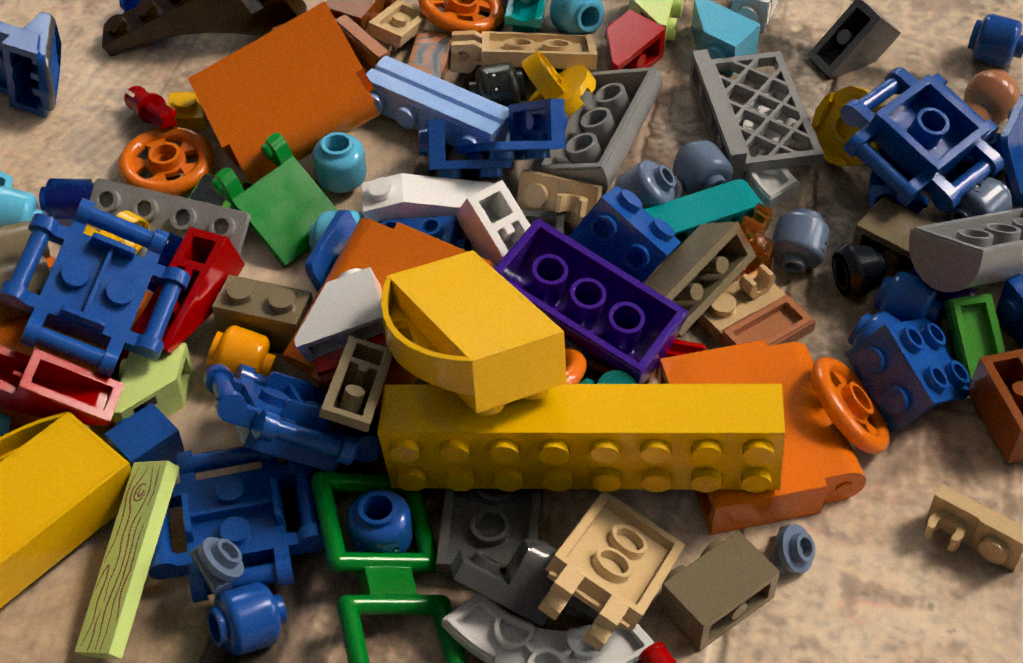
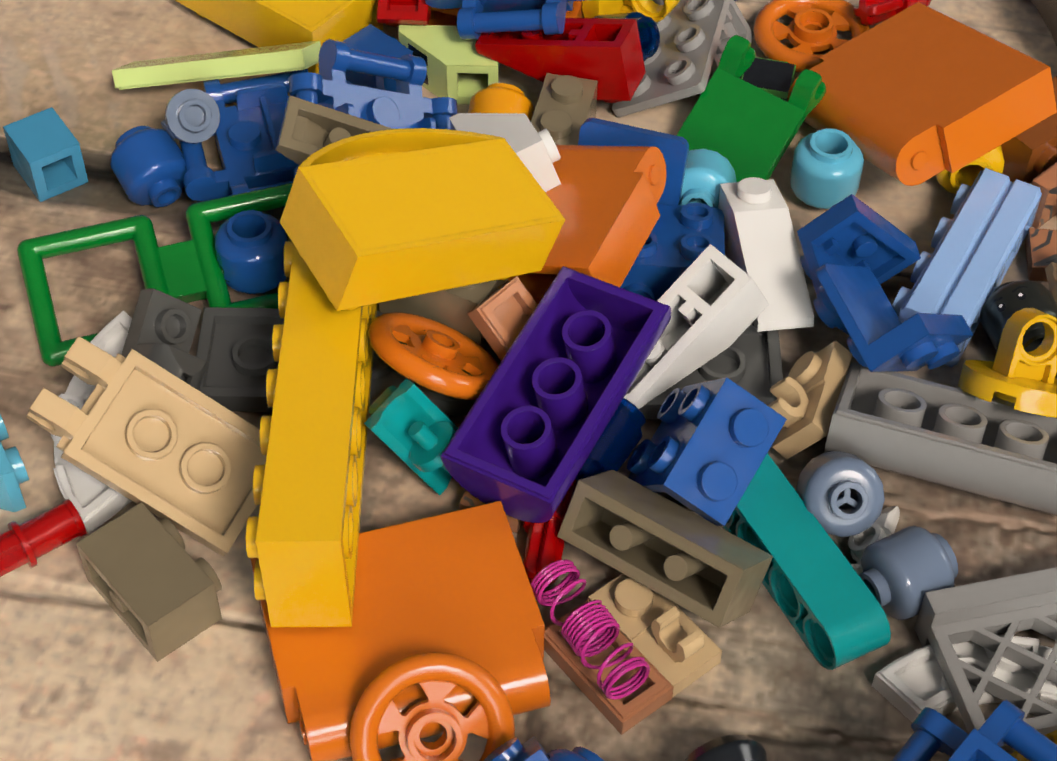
camera: 85 degrees right, 0 degrees up
(754, 230) = (752, 631): clear orange plate -> none
(759, 320) = (589, 629): none -> dark pink piece
(792, 550) = (213, 671): sand blue plate -> none
(800, 240) = (779, 702): sand blue head -> none

